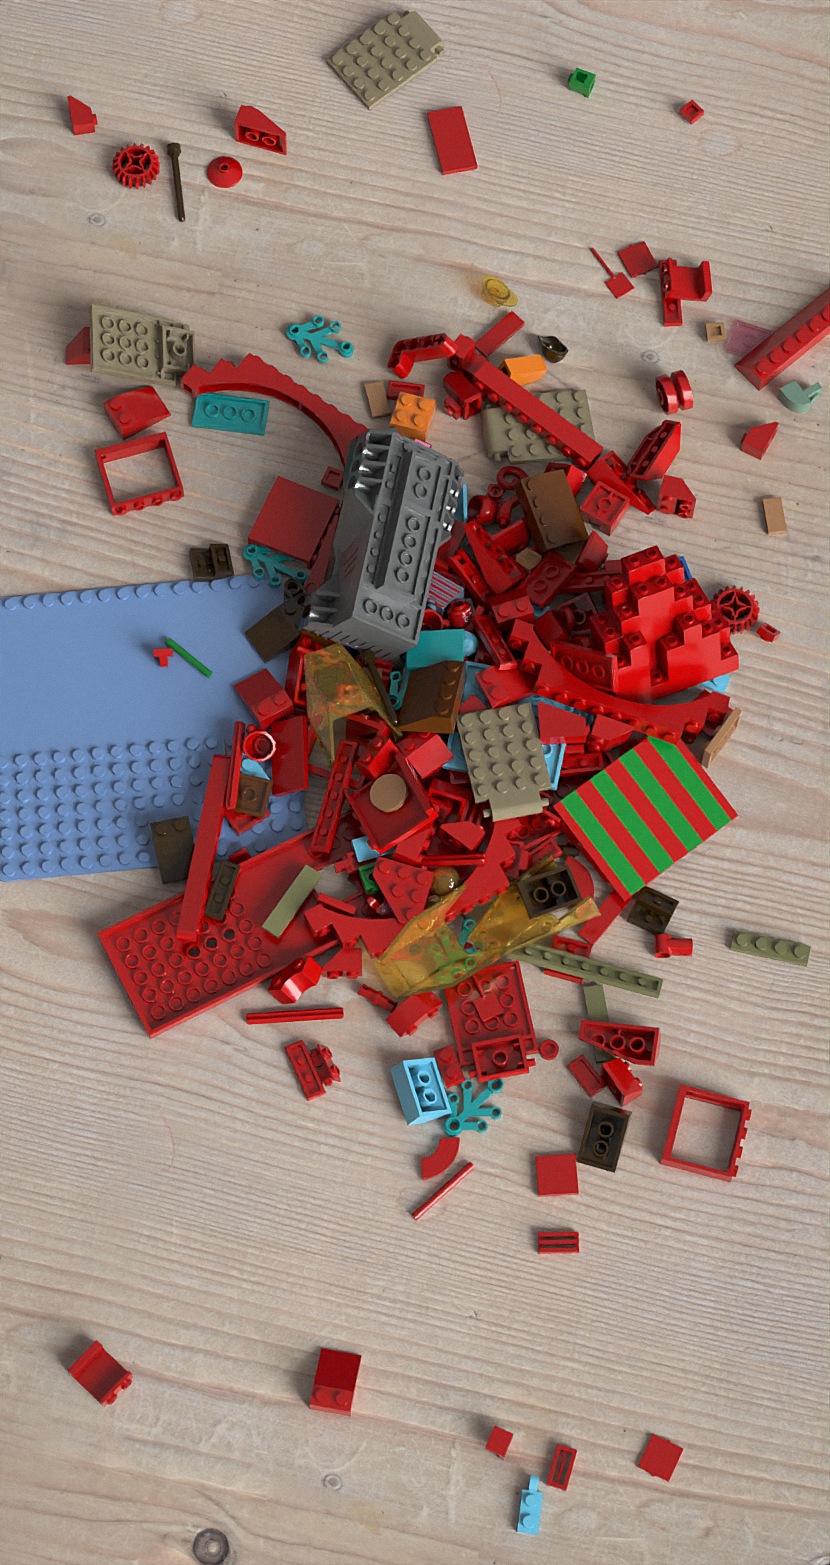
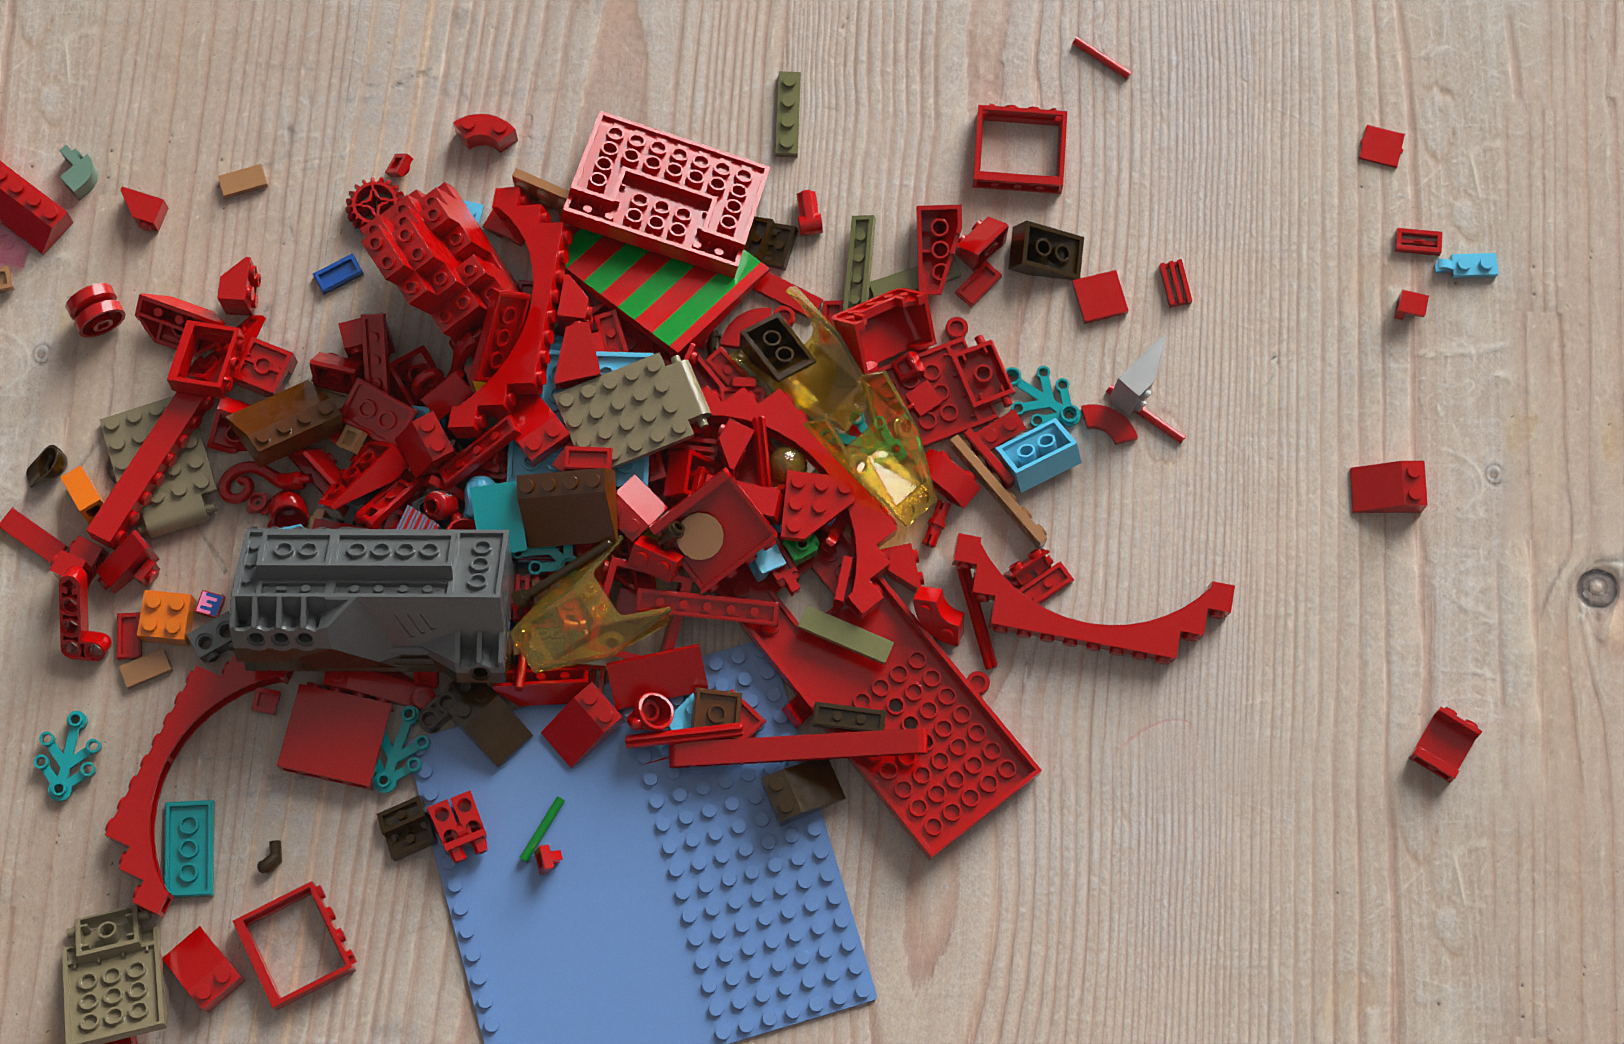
camera: 100 degrees left, 5 degrees up
(204, 596) = (459, 834): none -> red hips
(208, 468) = (273, 860): none -> dark brown arm
(236, 1006) = (979, 681): none -> red tile
(284, 1044) = (1143, 640): none -> red arch
(389, 1055) = (993, 485): none -> medium nougat plate
(393, 770) = (674, 531): none -> dark brown pin
(428, 1048) = (992, 462): none -> red tile
(467, 716) = (587, 458): none -> red tile
(469, 1183) = (1135, 383): none -> light grey slope
(518, 999) = (908, 366): none -> red slope
(552, 979) = (886, 327): none -> red windscreen
(619, 446) = (183, 357): none -> red window
(704, 828) = (665, 194): none -> slope
(784, 1225) = (1096, 54): none -> red bar
(790, 698) = (485, 131): none -> red brick

